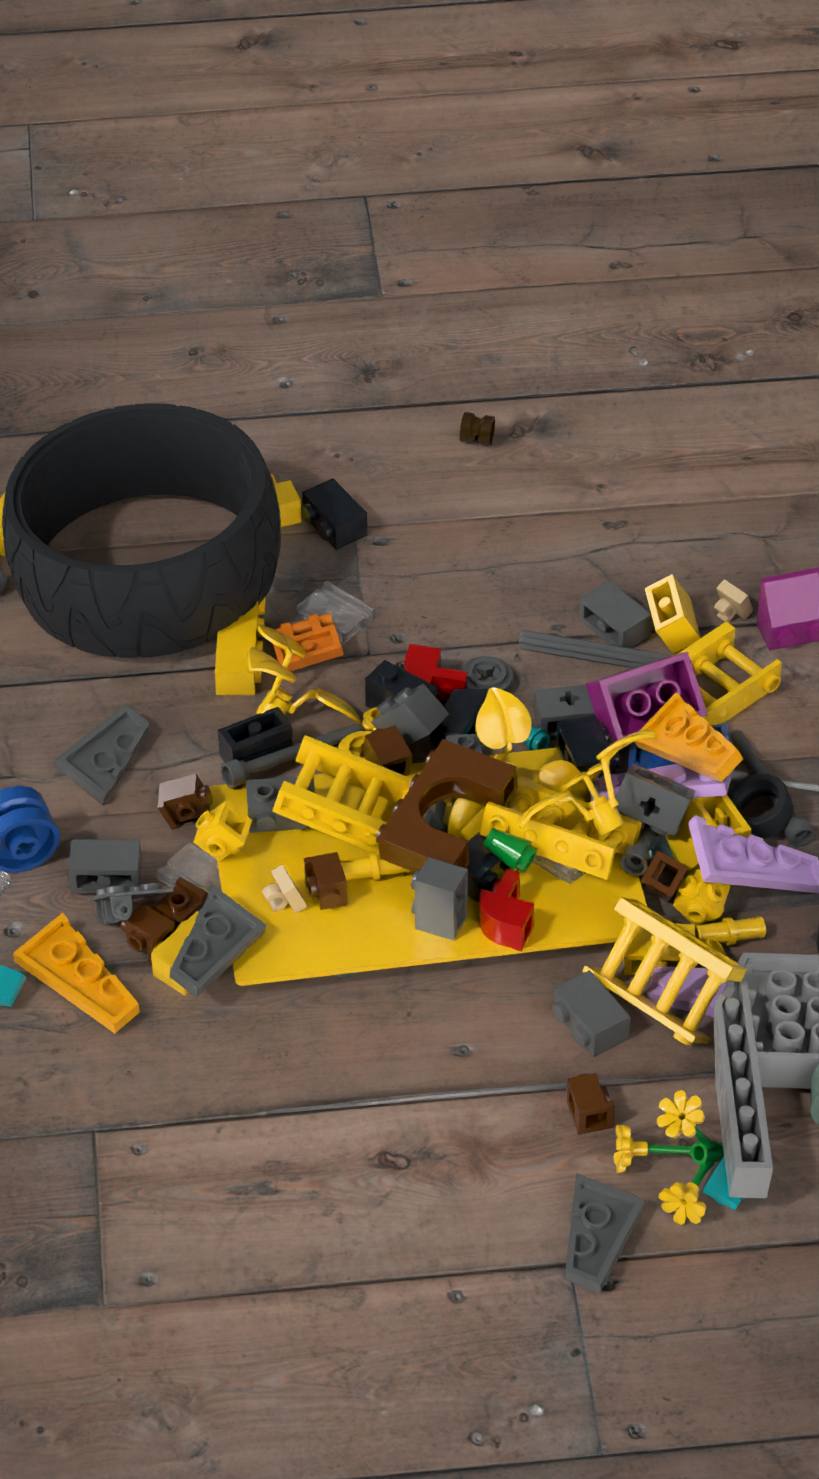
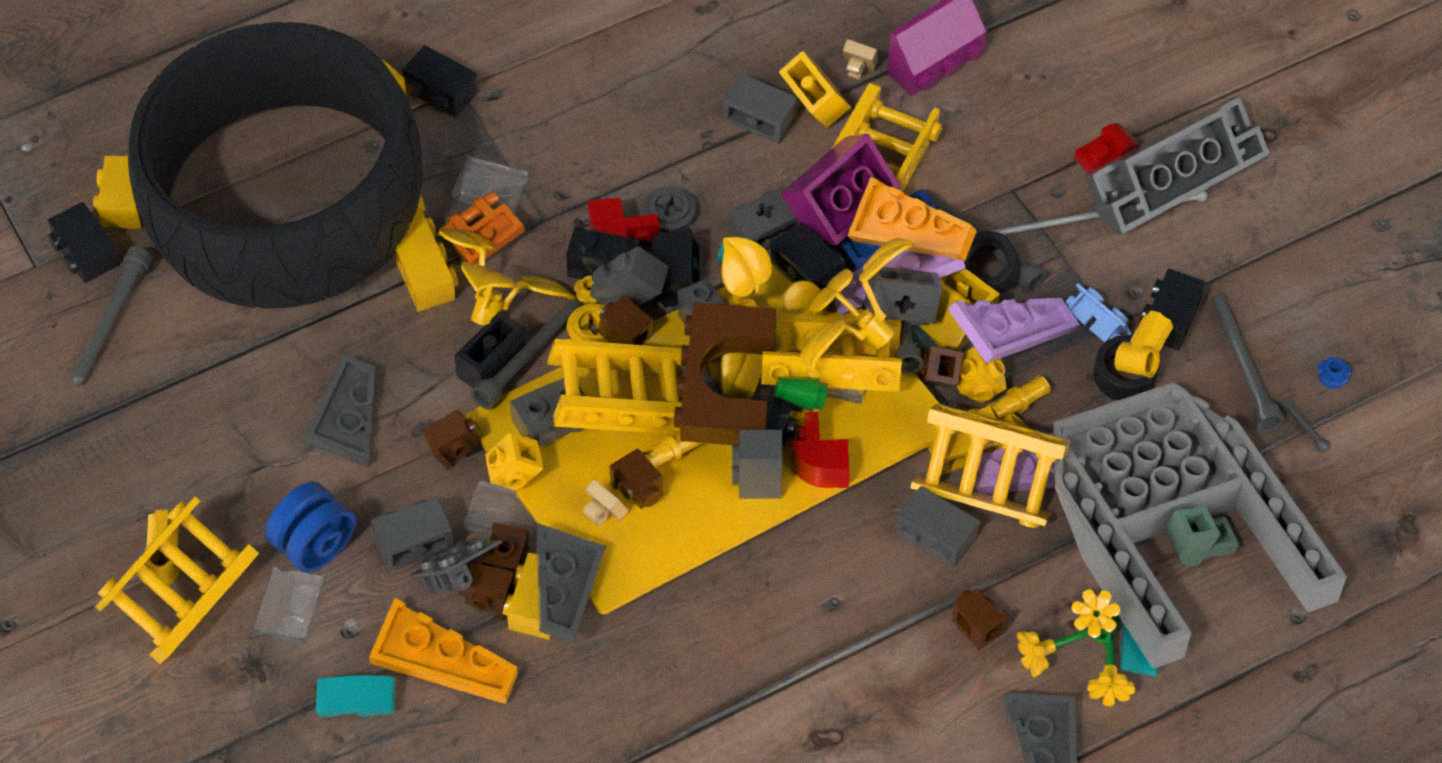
camera: 25 degrees left, 10 degrees up
(586, 650) = (757, 150): dark grey axle -> none

